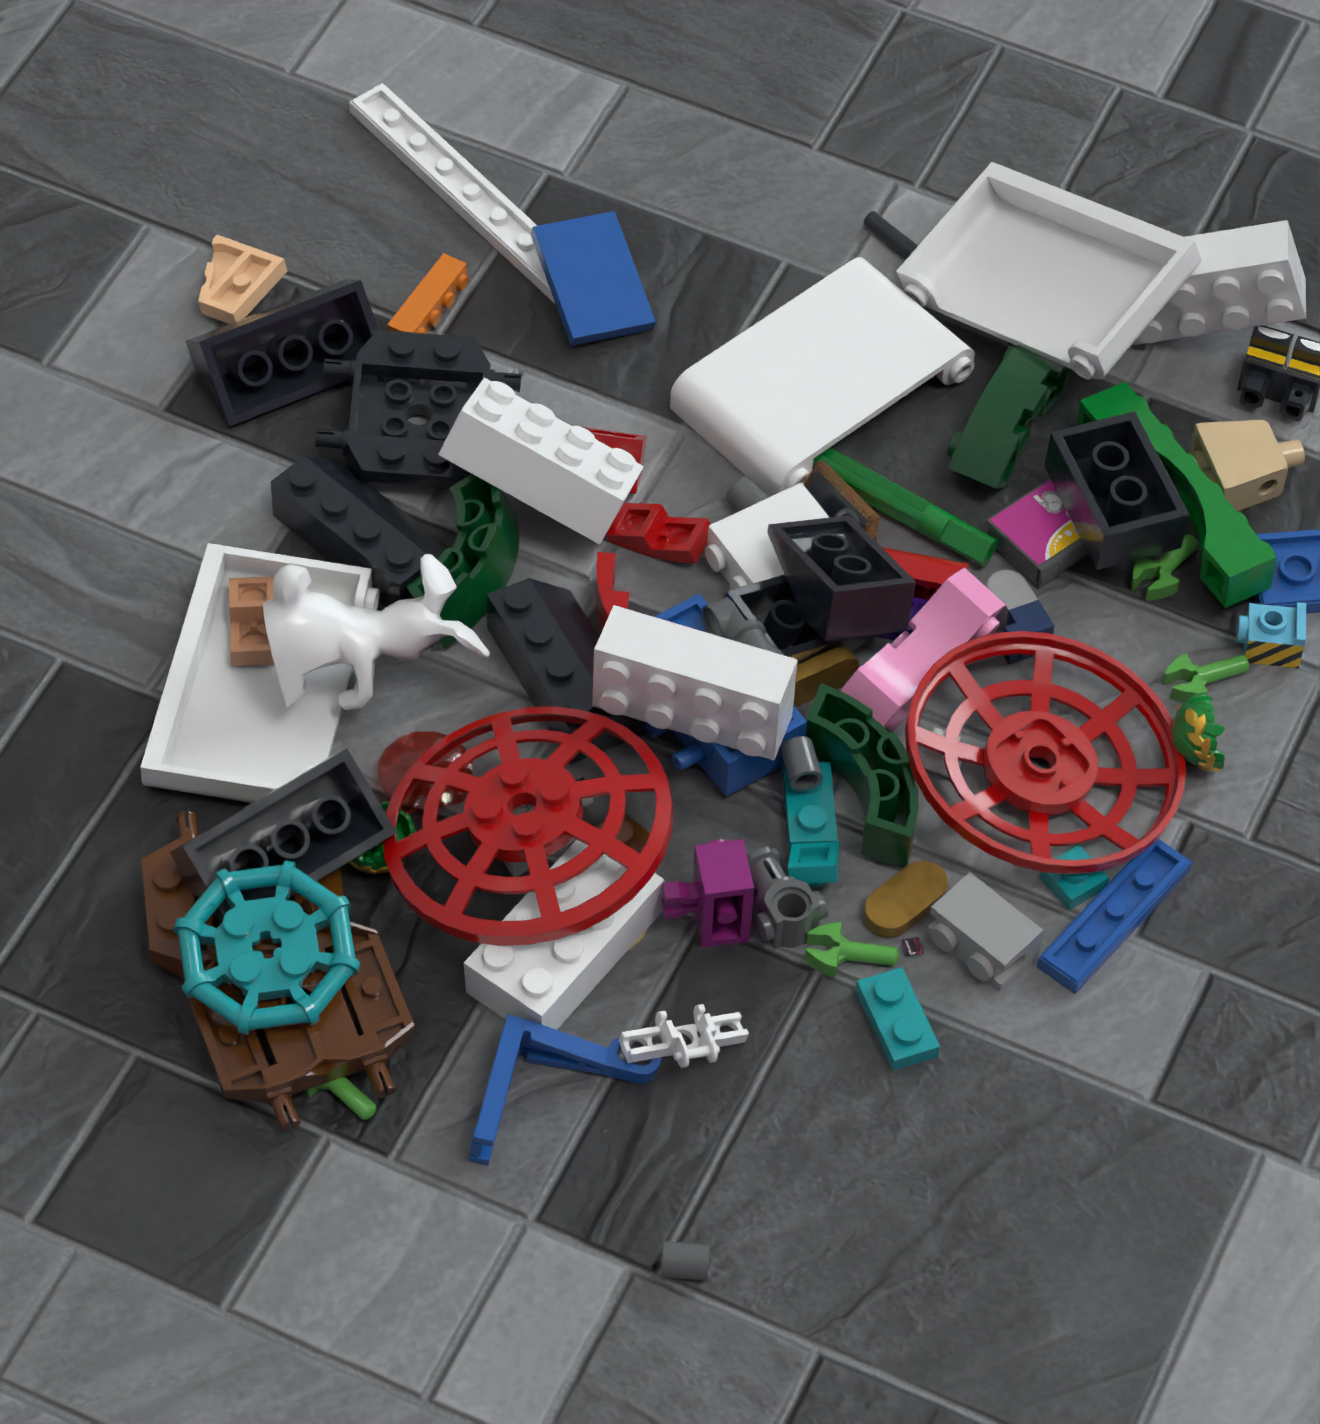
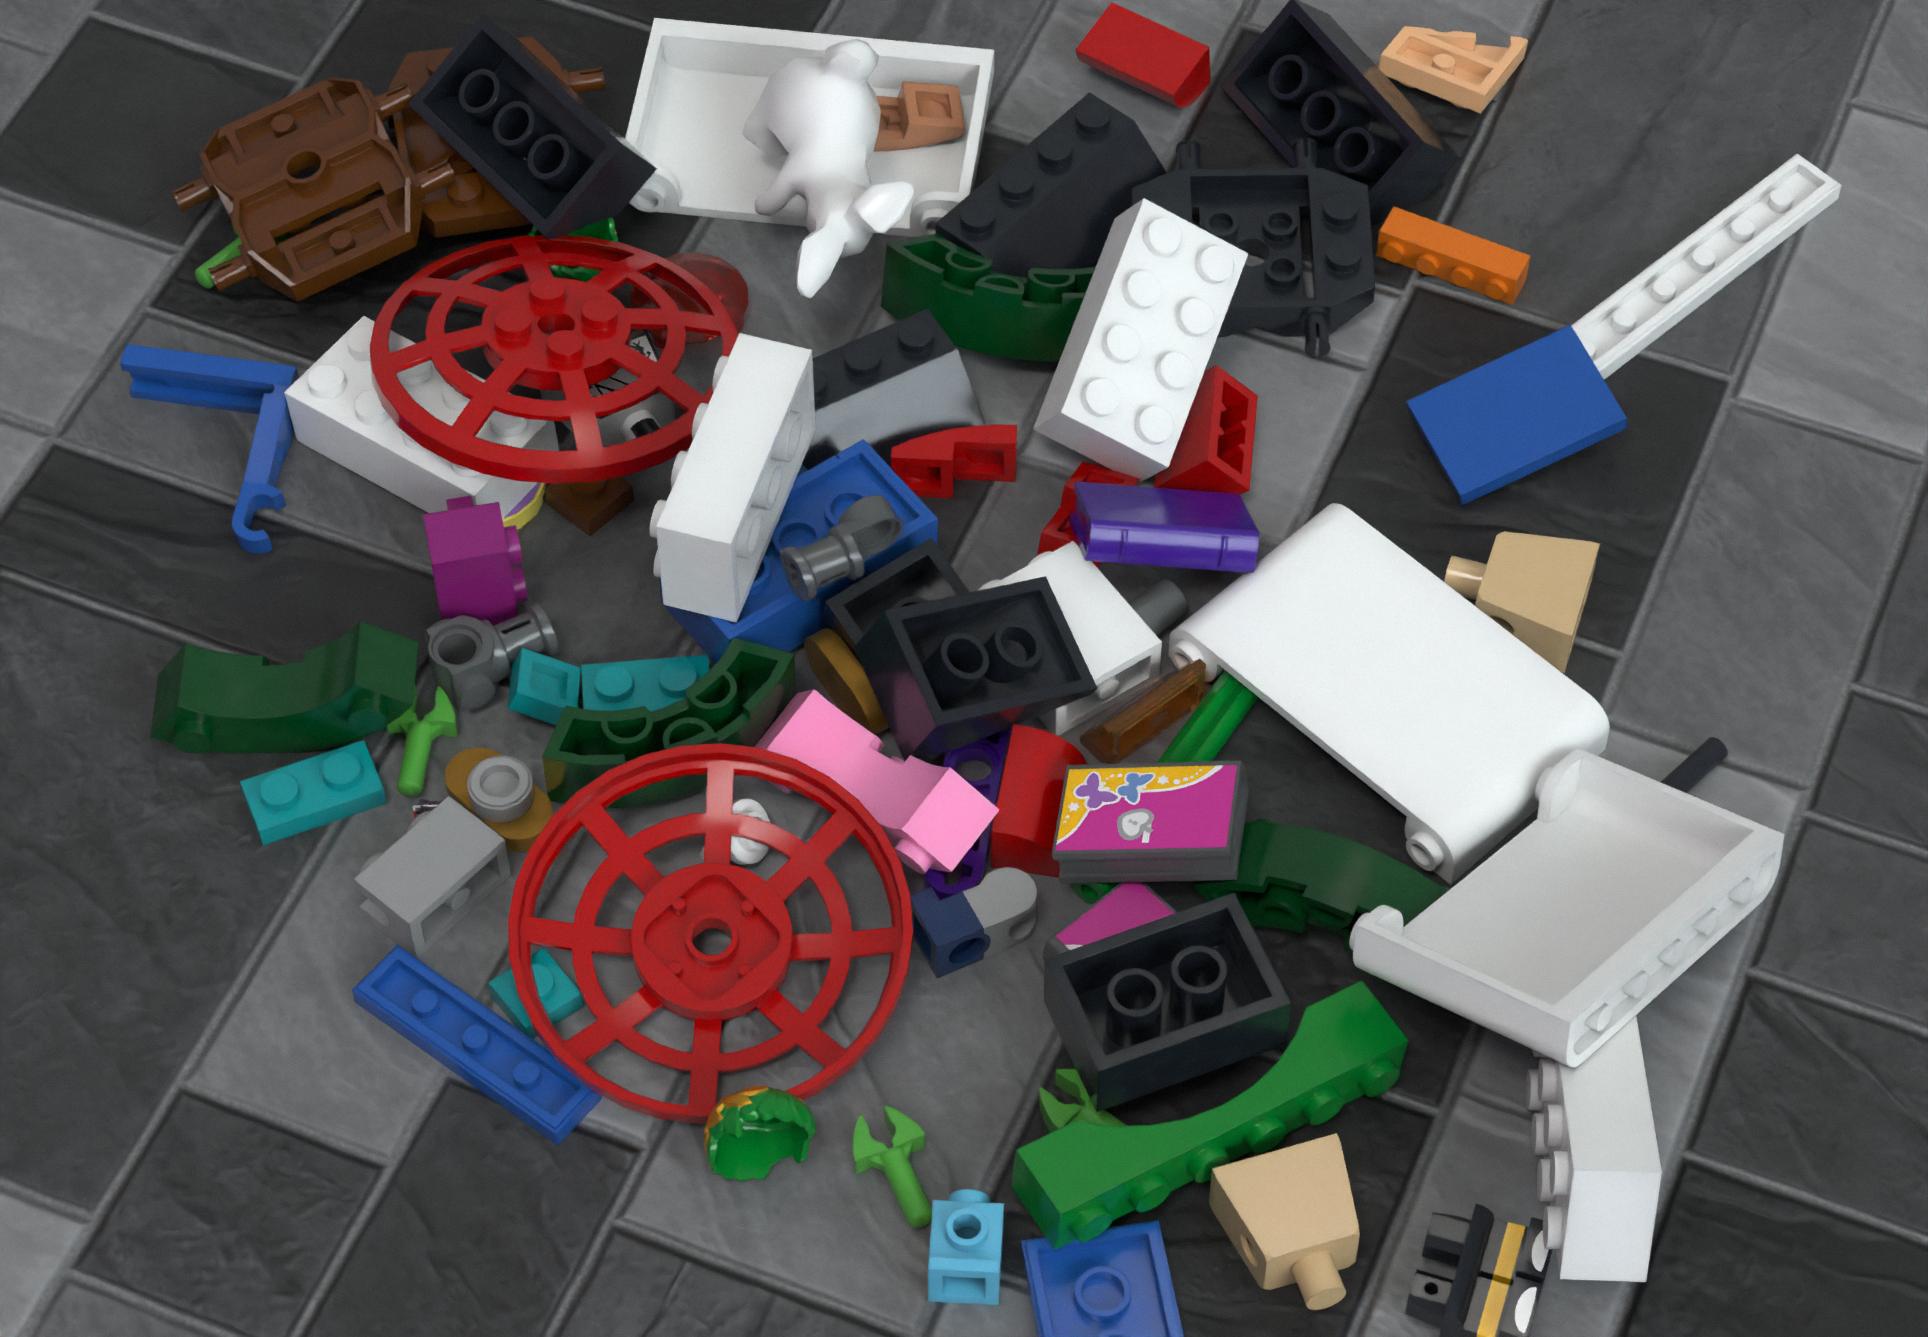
camera: 90 degrees right, 0 degrees up
(211, 459) = (1147, 56): none -> red brick
(266, 919) = (367, 151): teal plate -> none
(673, 1042) = (267, 532): white piece -> none
(698, 474) = (1164, 527): none -> dark purple piece
(749, 287) = (1531, 589): none -> tan torso
(801, 763) = (681, 652): dark grey hinge -> none
(825, 1031) = (298, 707): none -> dark green brick
(909, 887) = (500, 789): none -> light grey tile
(958, 495) = (1151, 822): none -> piece

